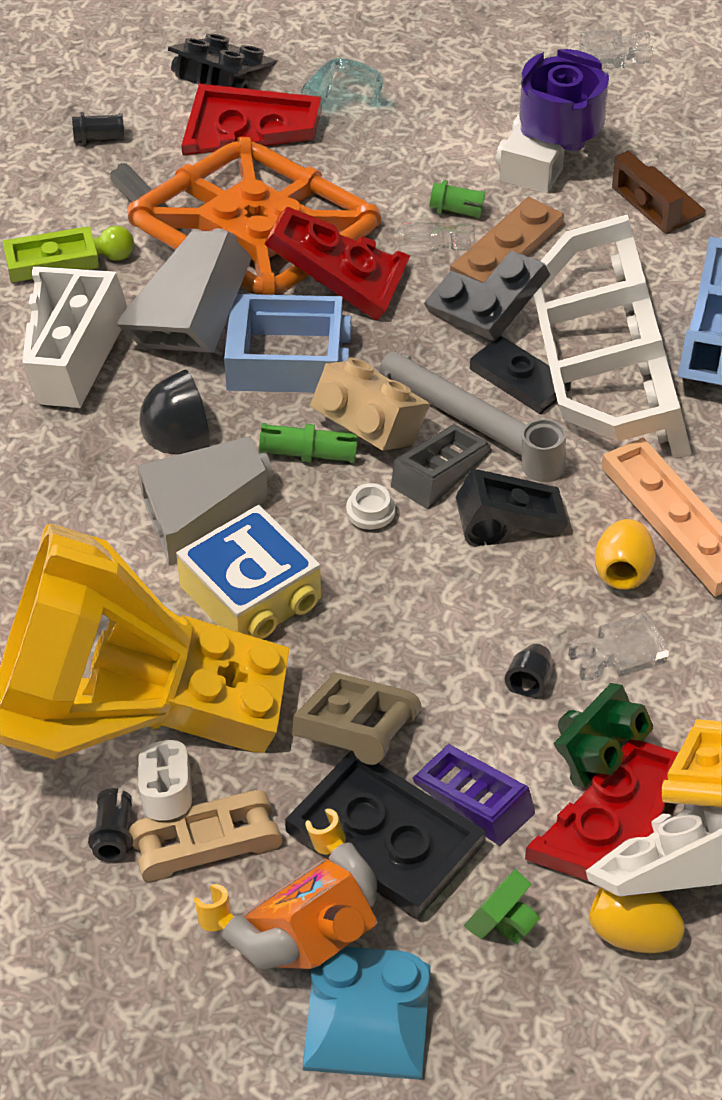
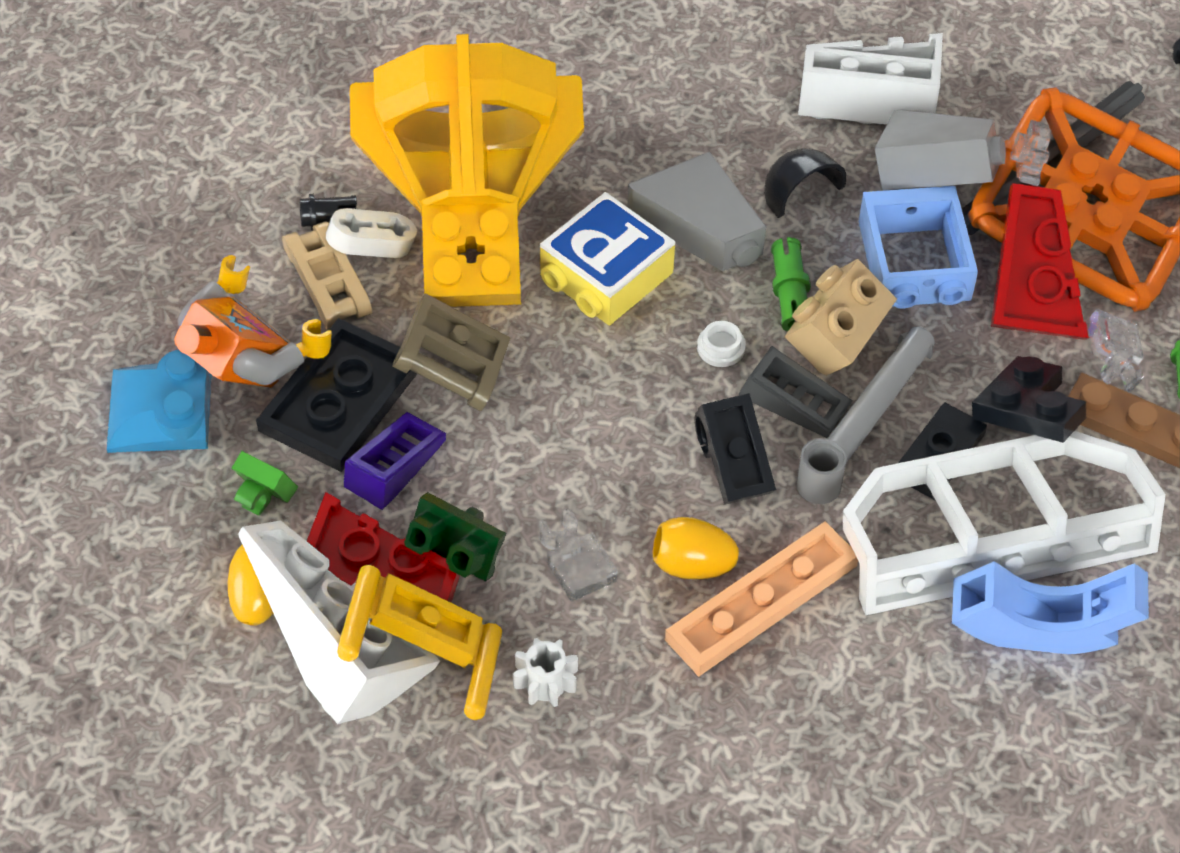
camera: 80 degrees right, 5 degrees up
(65, 250) = (998, 63): lime plate -> none
(236, 215) = (1030, 152): none -> clear plate
(532, 664) = (540, 488): black hose -> none

